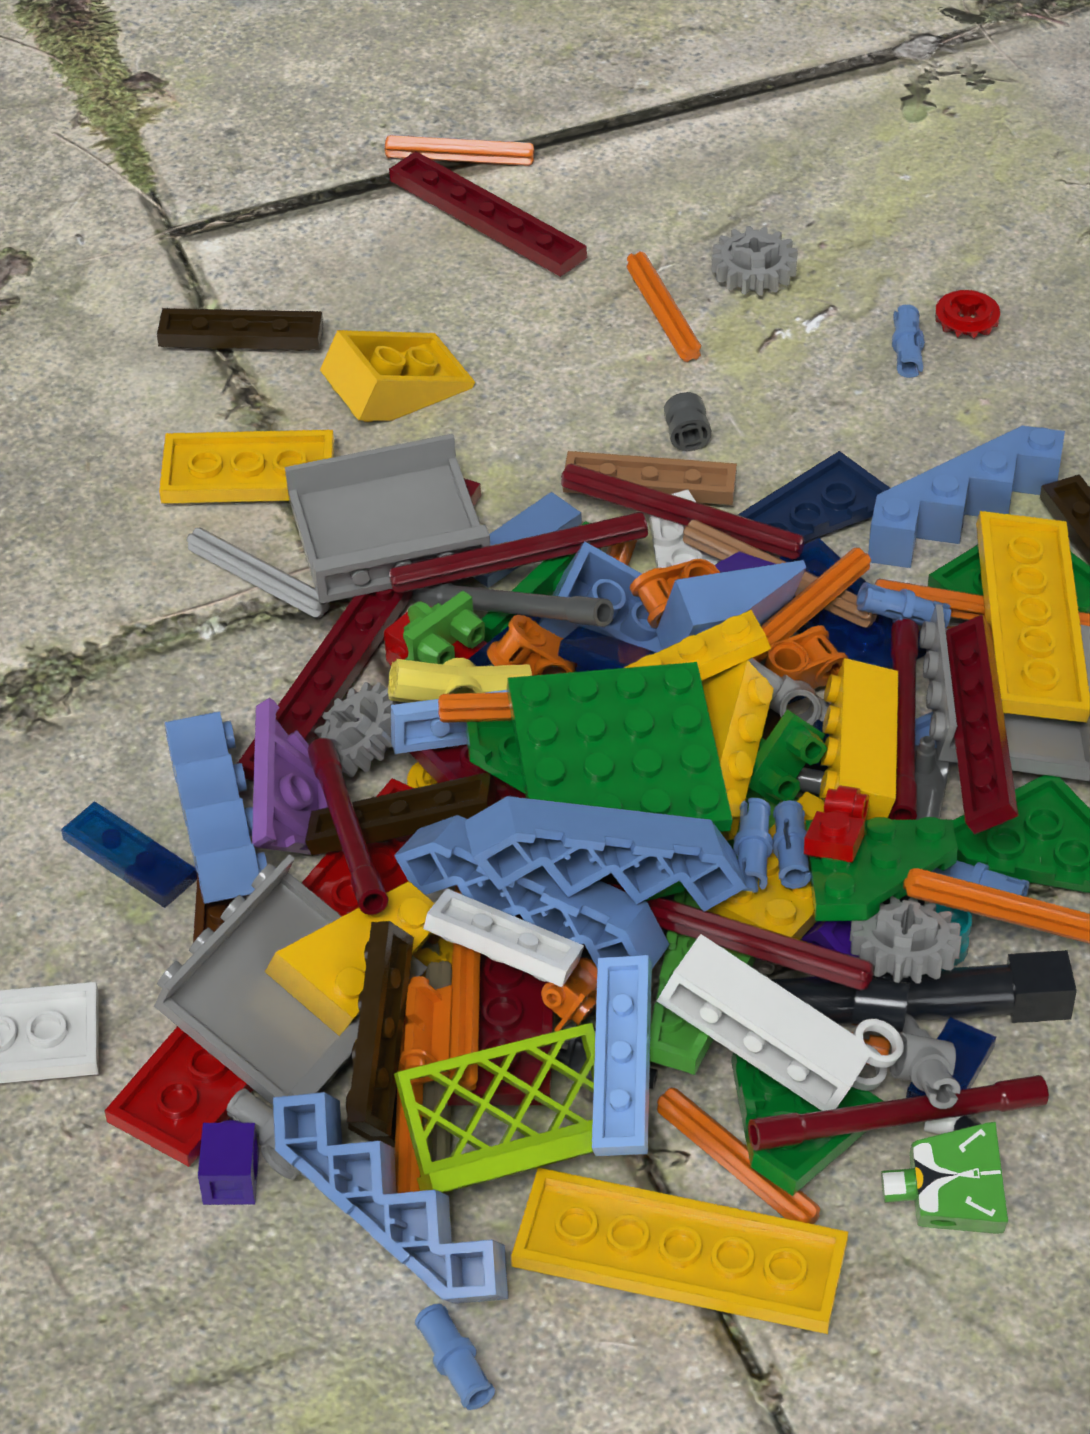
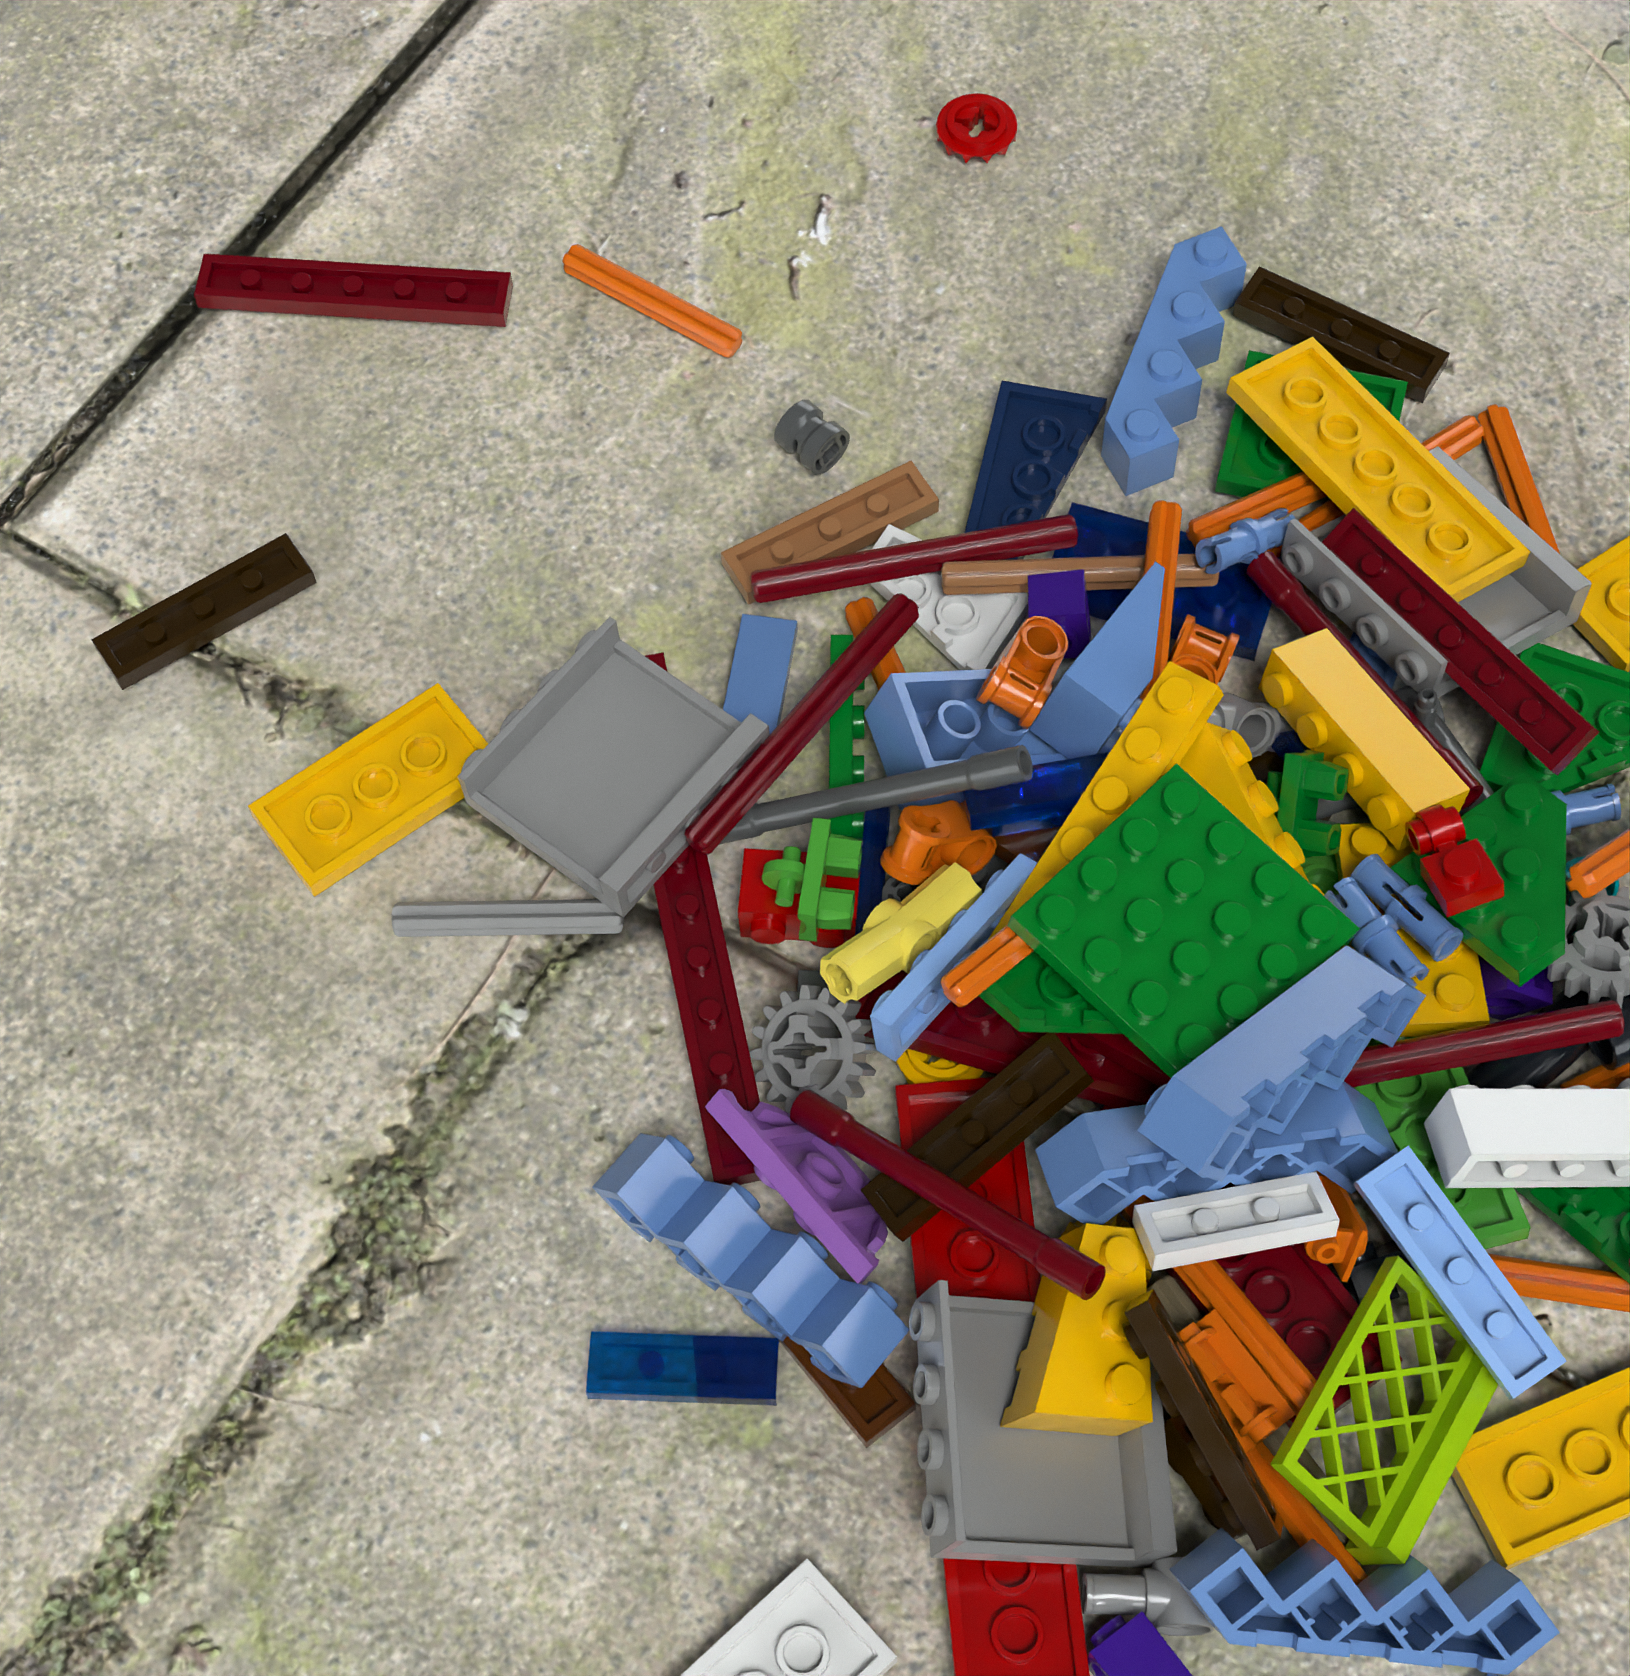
camera: 35 degrees left, 15 degrees up
(392, 372) = (437, 566): yellow slope -> none
(461, 150) = (244, 222): axle -> none
(754, 260) = (706, 187): light grey gear -> none
(908, 341) = (946, 197): medium blue pin -> none

